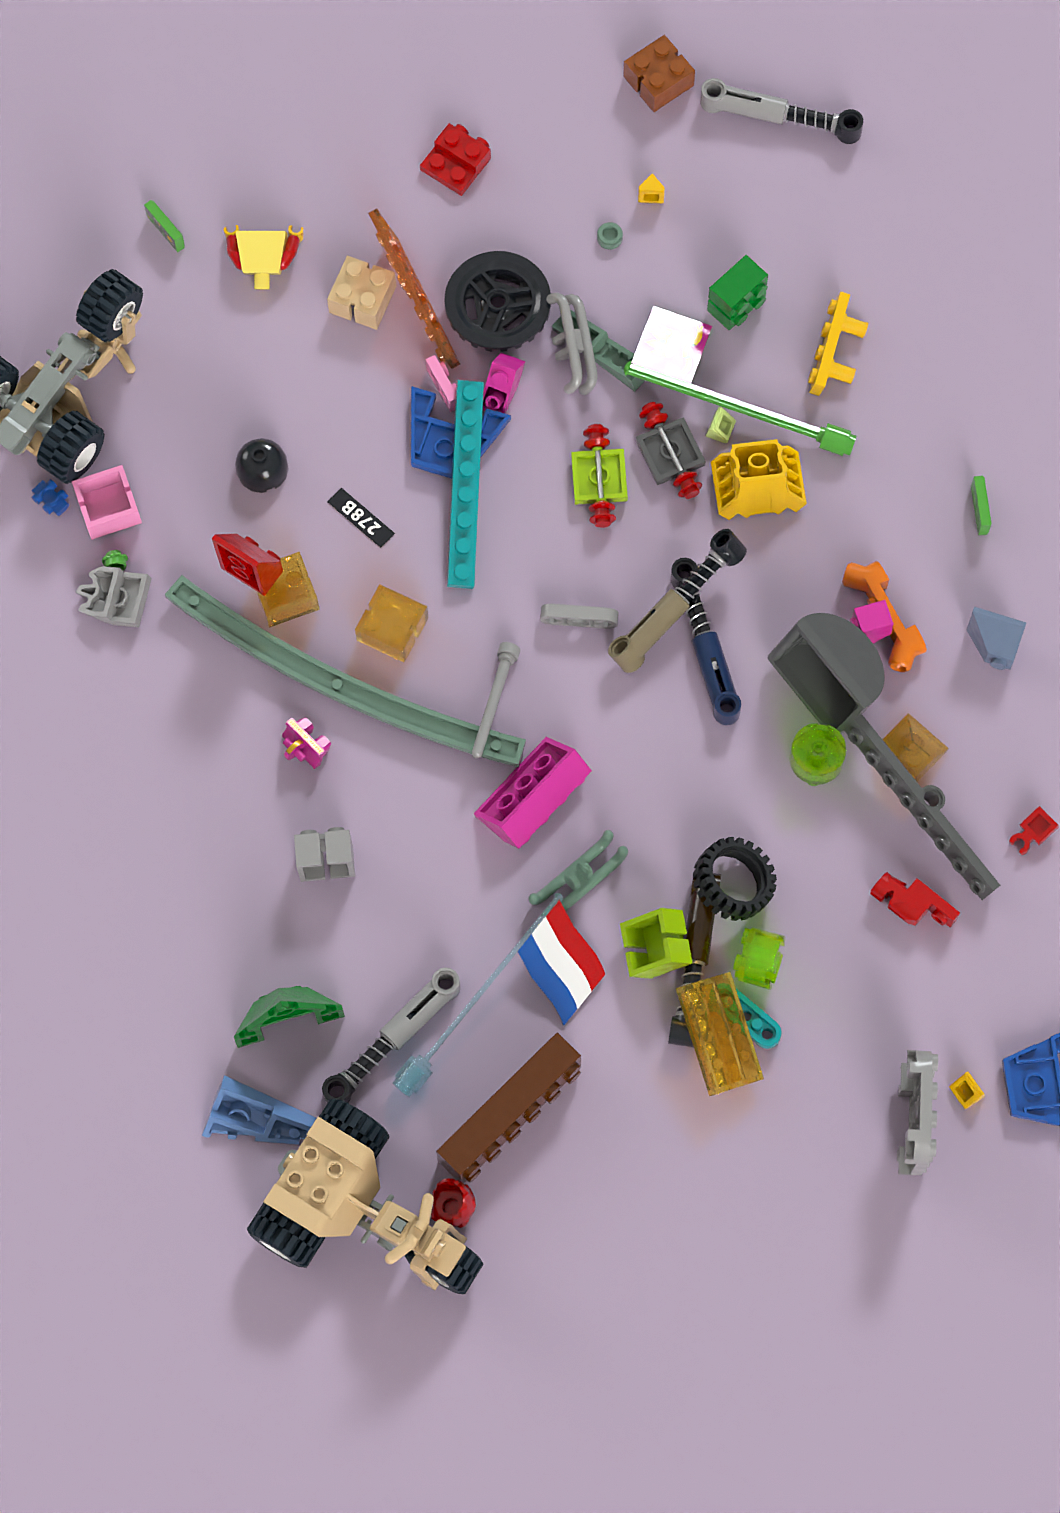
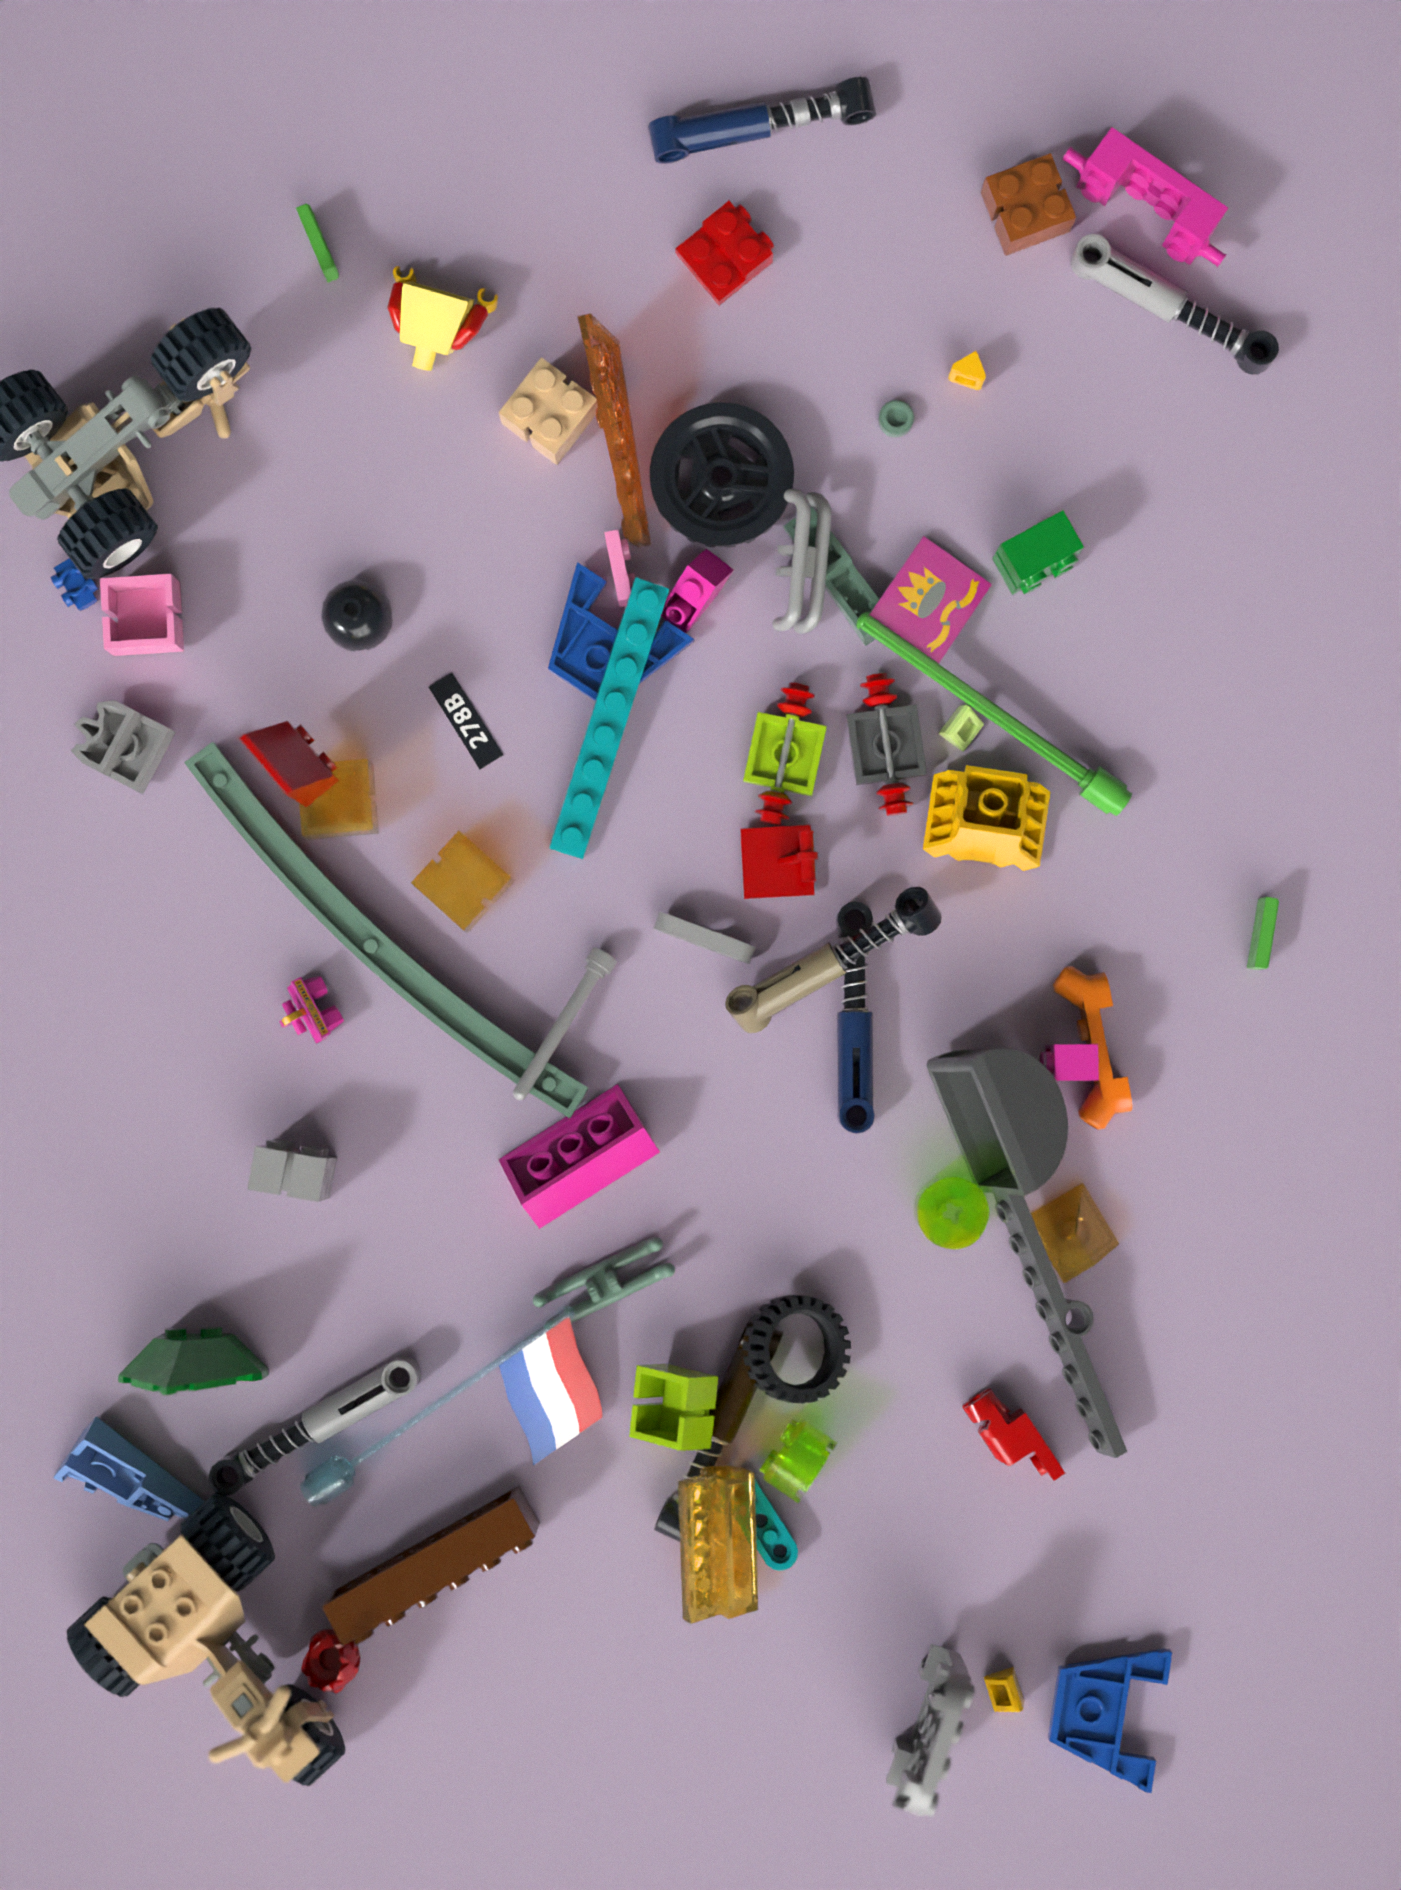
camera: 15 degrees right, 15 degrees up
(115, 559) = (135, 695): bright green plate -> none
(399, 94) = (677, 137): none -> piece
(618, 549) = (778, 861): none -> red plate
(738, 34) = (1147, 178): none -> dark pink brick
(824, 354) = (1127, 666): yellow plate -> none
(995, 637) = (1225, 1125): sand blue slope -> none
(1036, 827) = (1196, 1382): red plate -> none

